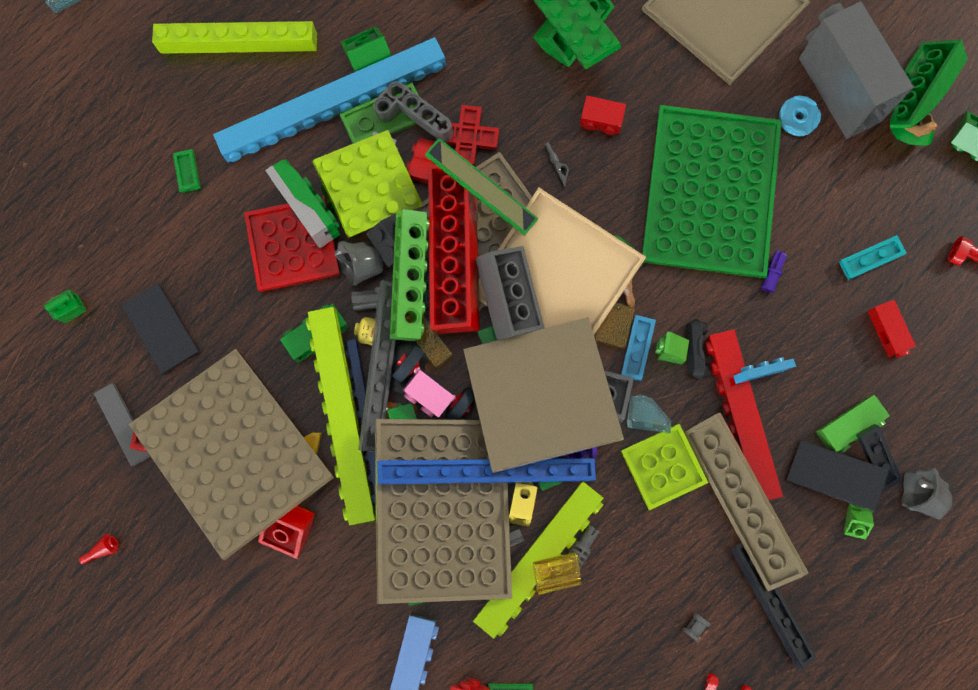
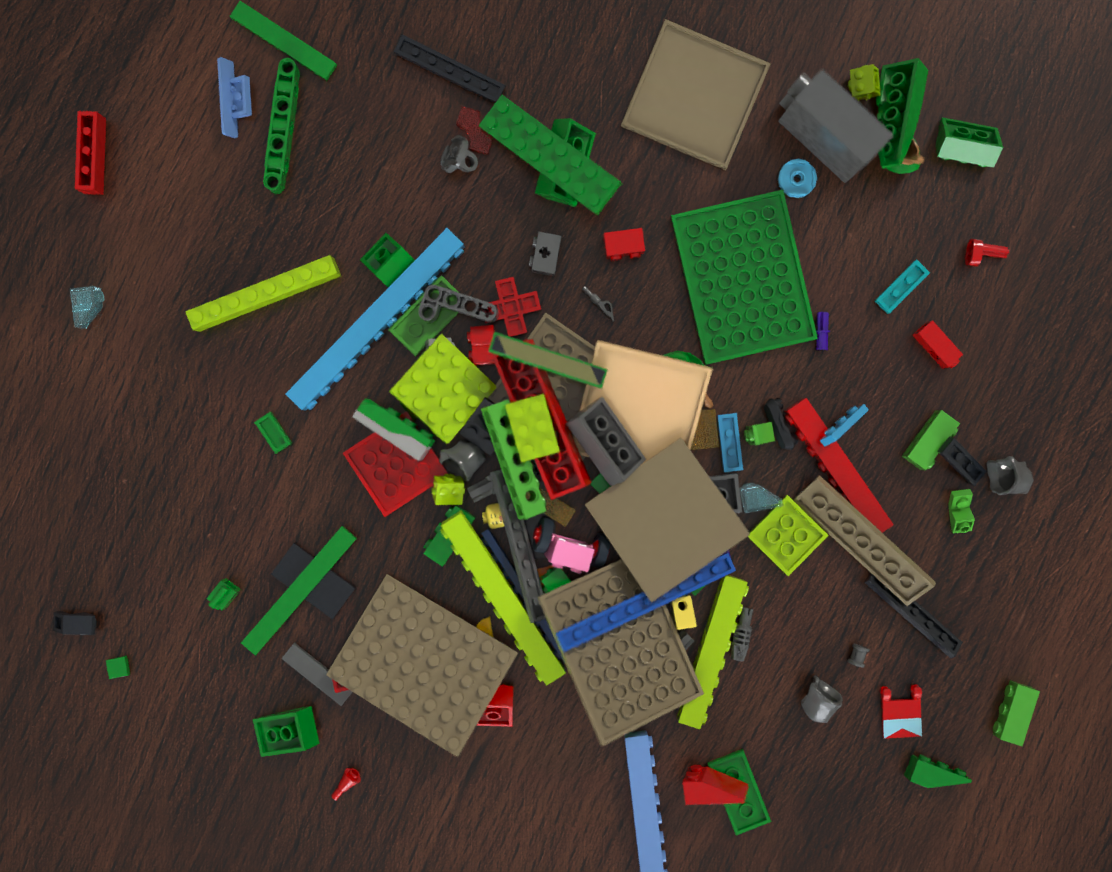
camera: 30 degrees left, 10 degrees up
(64, 470) = (286, 732): none -> green slope
(140, 331) = (298, 590): none -> green tile
(332, 285) = (448, 490): none -> lime head
(439, 247) = (532, 428): none -> lime plate
(520, 108) = (545, 242): none -> dark grey brick
(557, 573) = (732, 659): clear yellow plate -> none
(636, 661) = (821, 701): none -> dark grey piece
(837, 476) = (932, 489): black tile -> none
(902, 45) = (864, 82): none -> lime head

